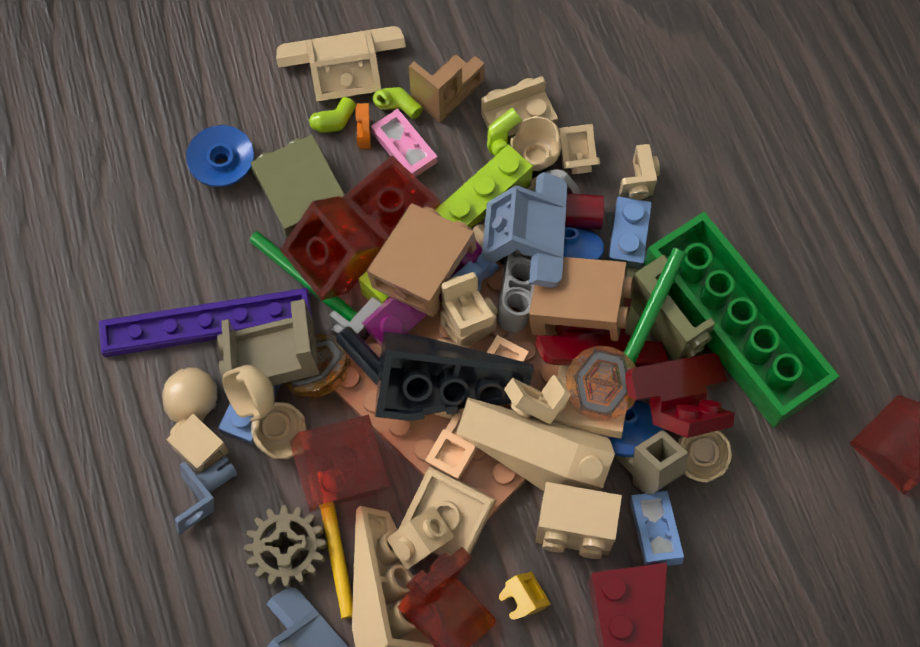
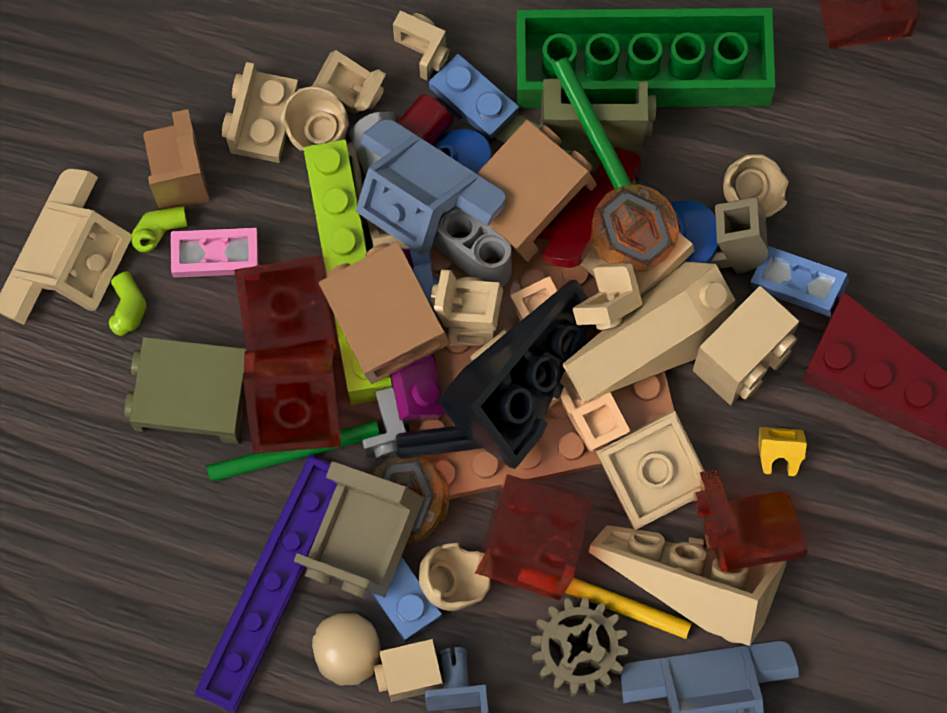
camera: 55 degrees left, 5 degrees up
(213, 145) = (79, 433): blue dish -> none
(249, 392) = (403, 576): tan hair -> none
(363, 126) = (163, 280): orange tile -> none
(420, 537) = (662, 509): tan bracket -> none
(498, 131) = (276, 149): lime arm -> none
(680, 394) = (685, 170): dark red plate -> none

